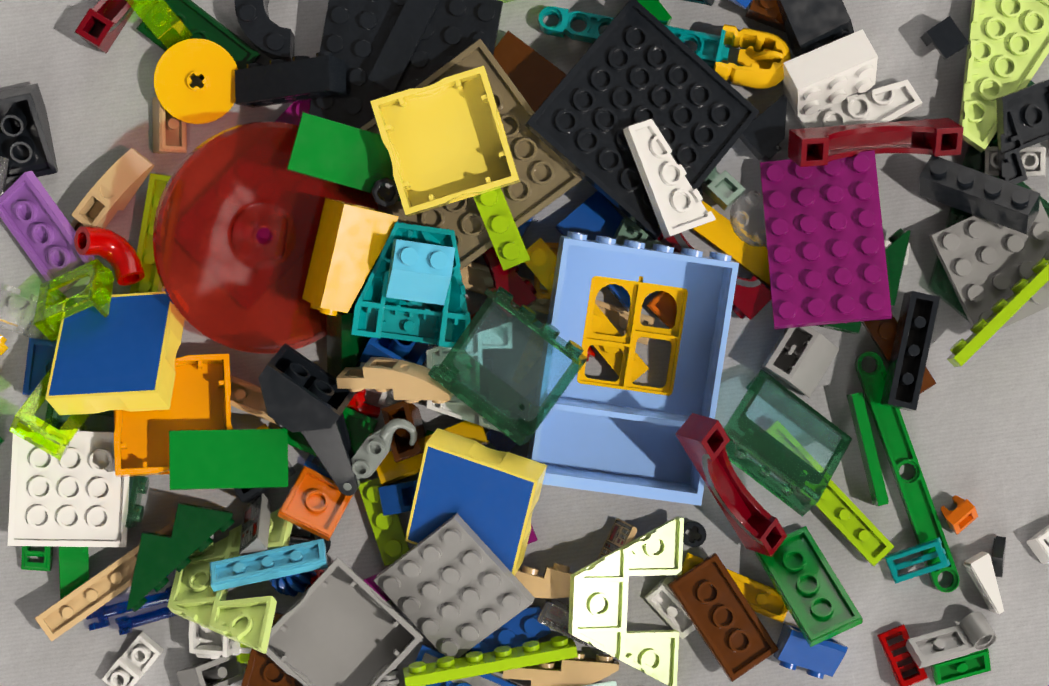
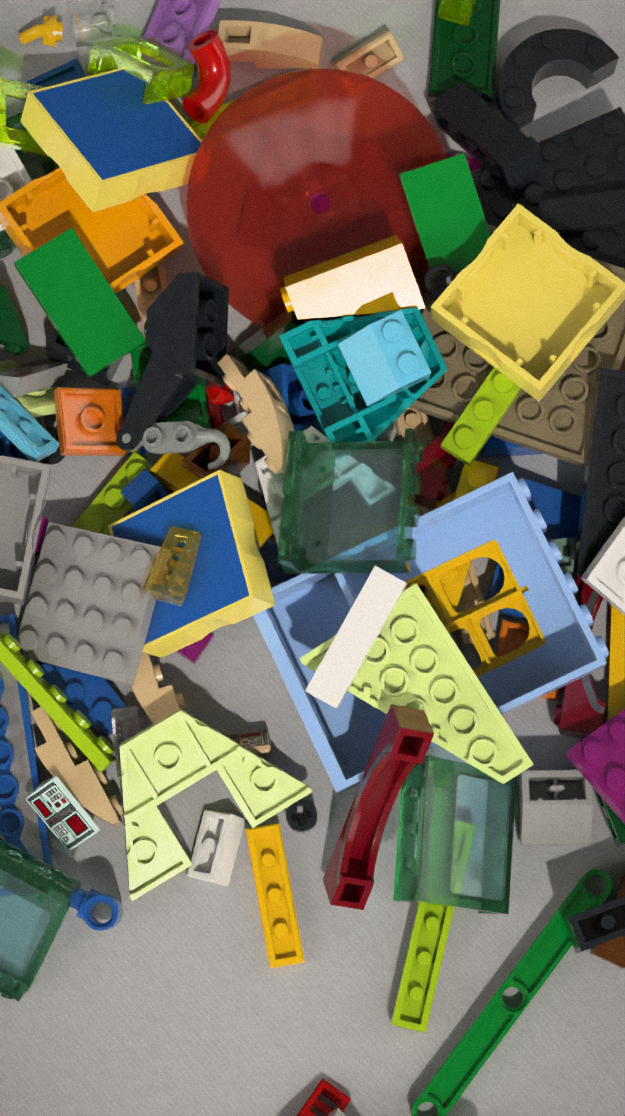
camera: 60 degrees right, 10 degrees down
(174, 79) = (411, 35): yellow piece -> none
(478, 512) = (182, 569): none -> clear yellow slope
(609, 425) = (356, 637): none -> white tile
(651, 398) = (423, 669): none -> yellowish green wing
(723, 617) = (236, 899): reddish brown tile -> none
(810, 588) = (324, 965): green tile -> none
(818, 659) = (257, 1011): blue slope -> none
(867, 449) = (508, 939): green tile -> none
(940, 552) = (450, 1083): teal tile -> none
(961, 516) = (504, 1084): orange tile -> none

